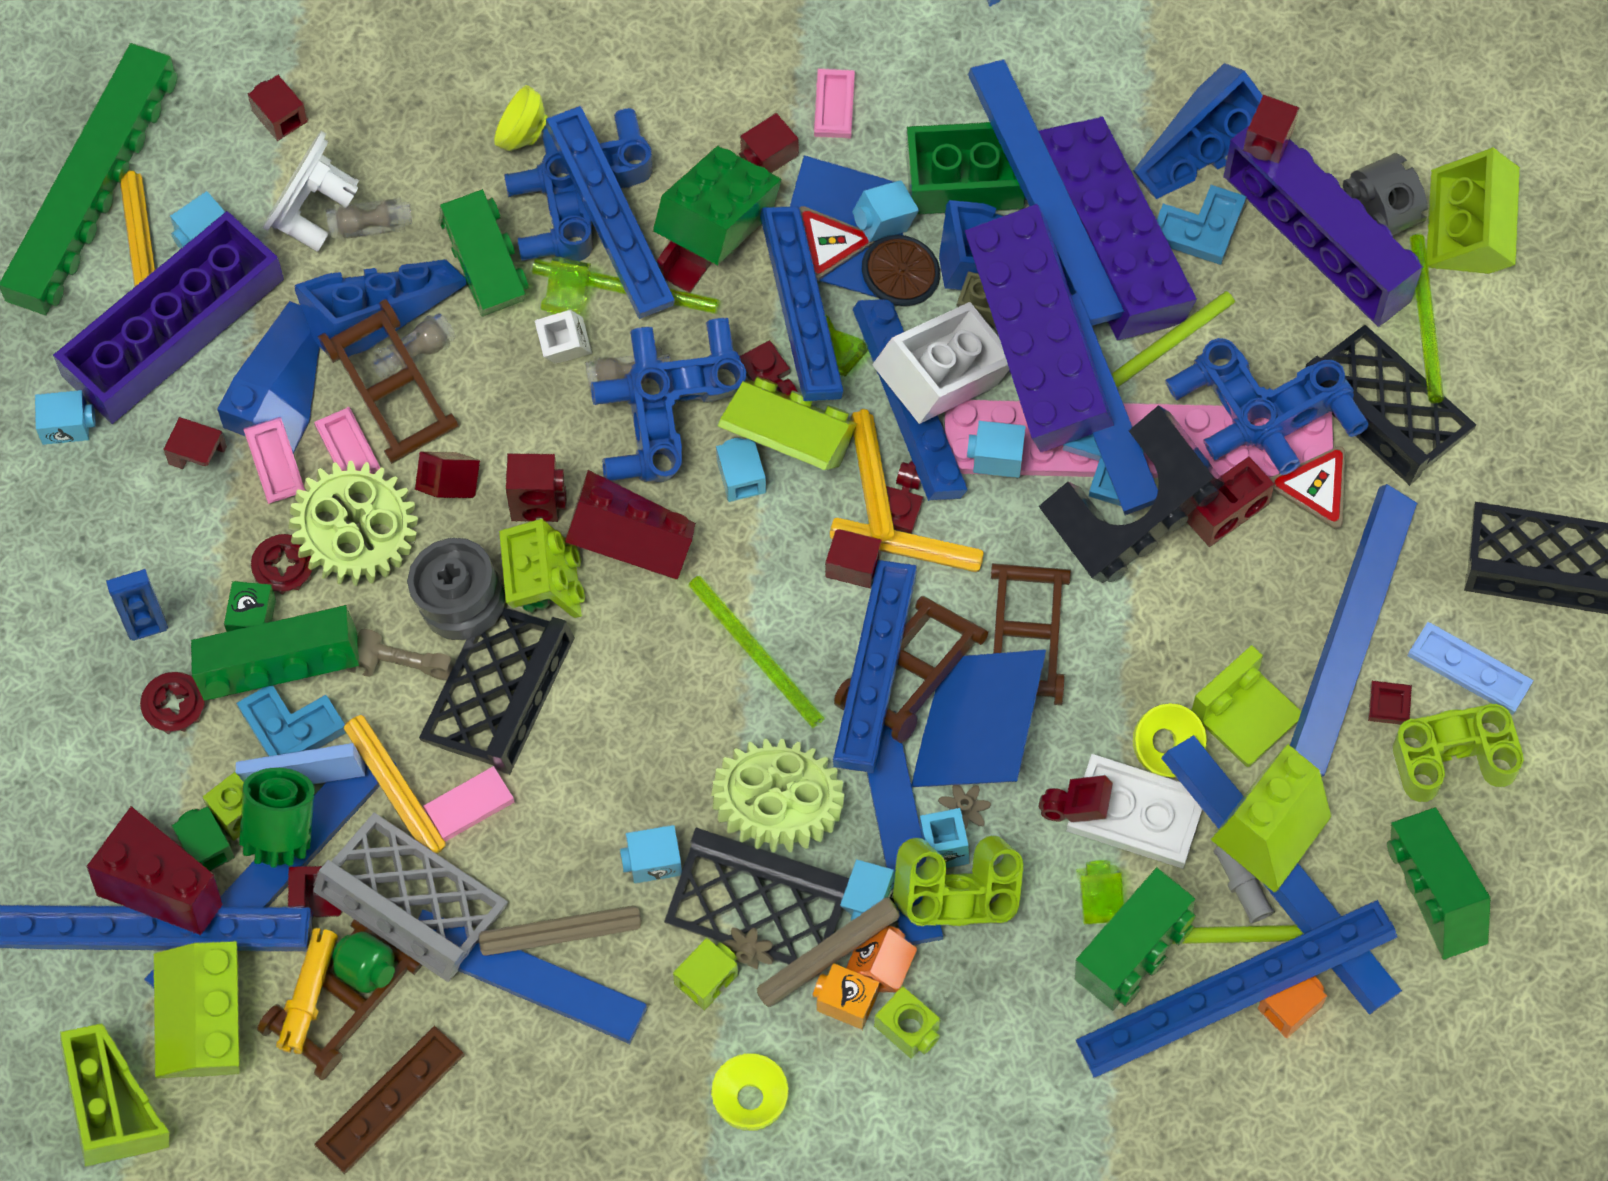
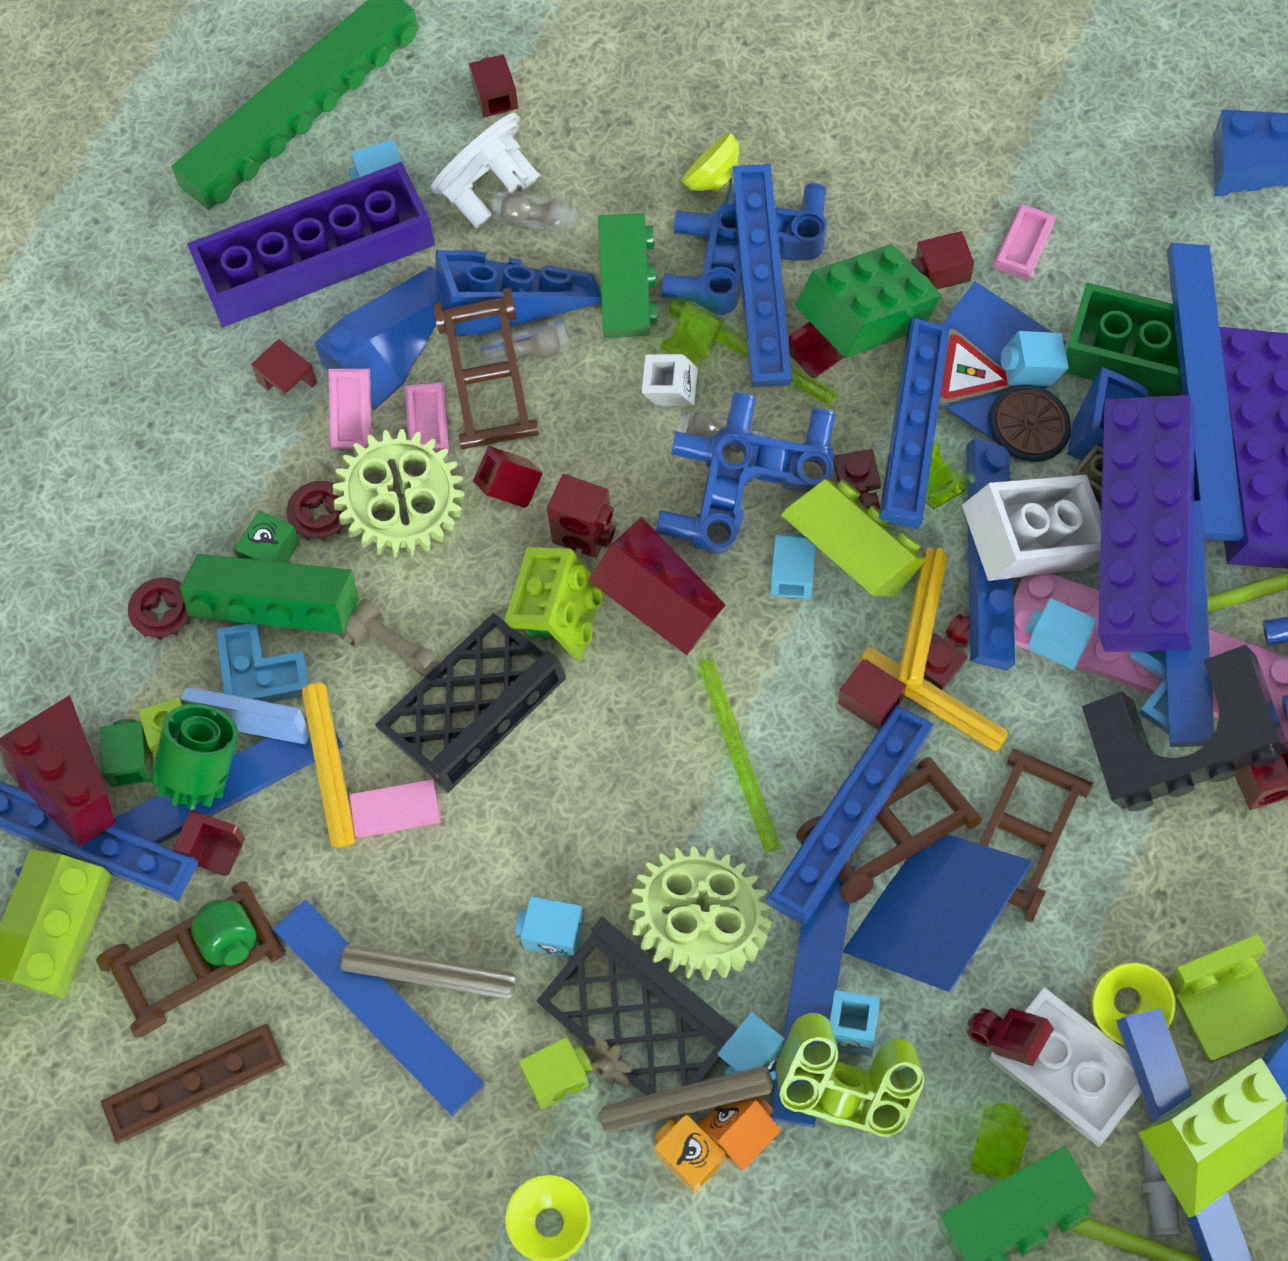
camera: 25 degrees right, 0 degrees up
(63, 417) = (178, 306): medium azure brick -> none
(137, 226) = (324, 150): yellow axle -> none
(137, 605) = (156, 501): blue tile -> none
(302, 1006) = (155, 942): yellow pin -> none
(384, 914) = (260, 891): light grey fence -> none
(456, 588) = (465, 589): dark grey wheel -> none
(906, 1006) = (741, 1187): lime brick -> none
(973, 806) = (895, 1000): dark tan plant -> none

